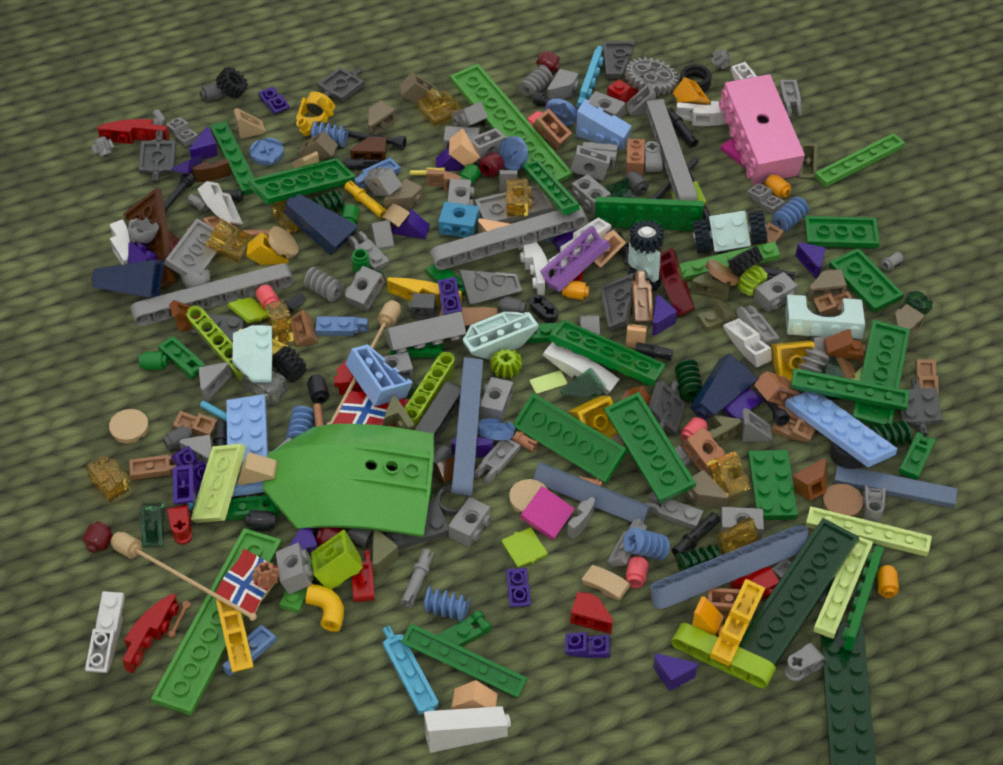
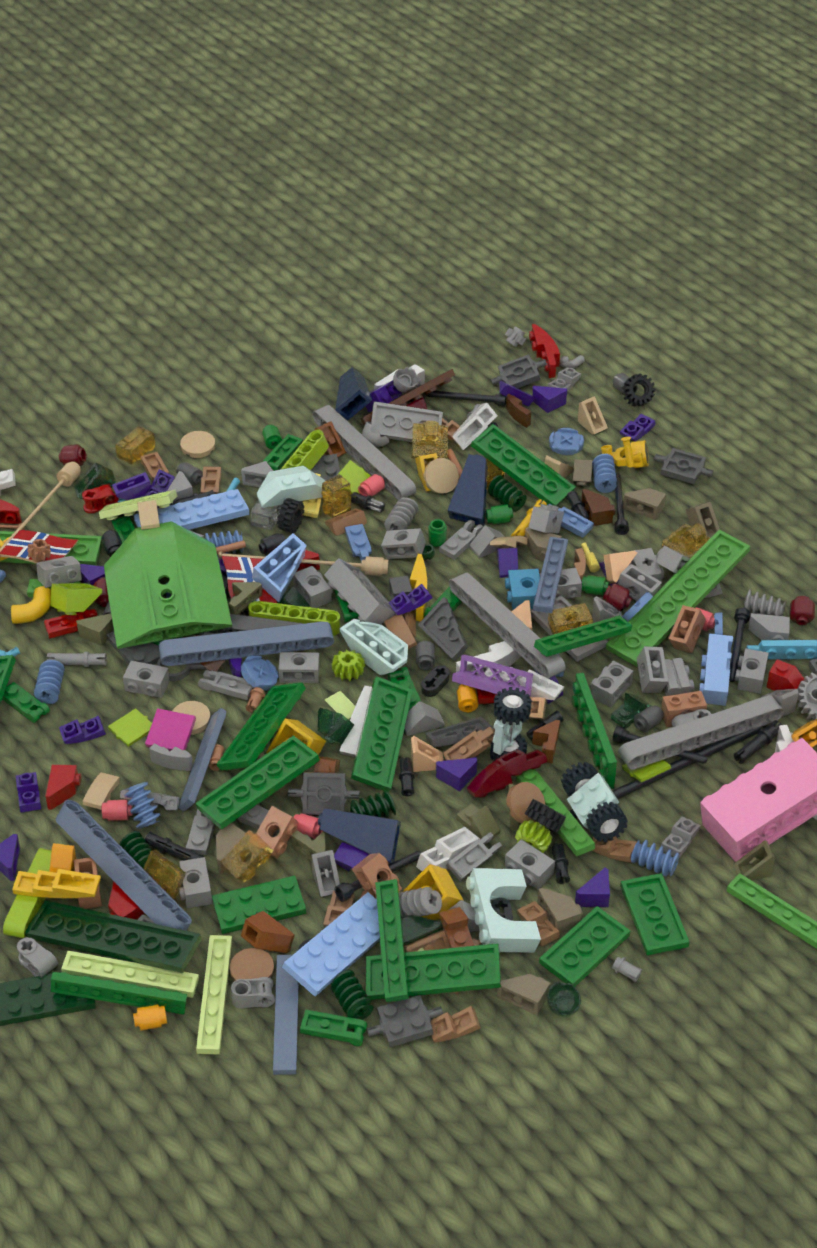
camera: 75 degrees right, 5 degrees down
(232, 152) = (547, 421): green plate -> none
(460, 192) = (550, 575): none -> sand blue tile
(778, 185) = (700, 842): light orange brick -> none

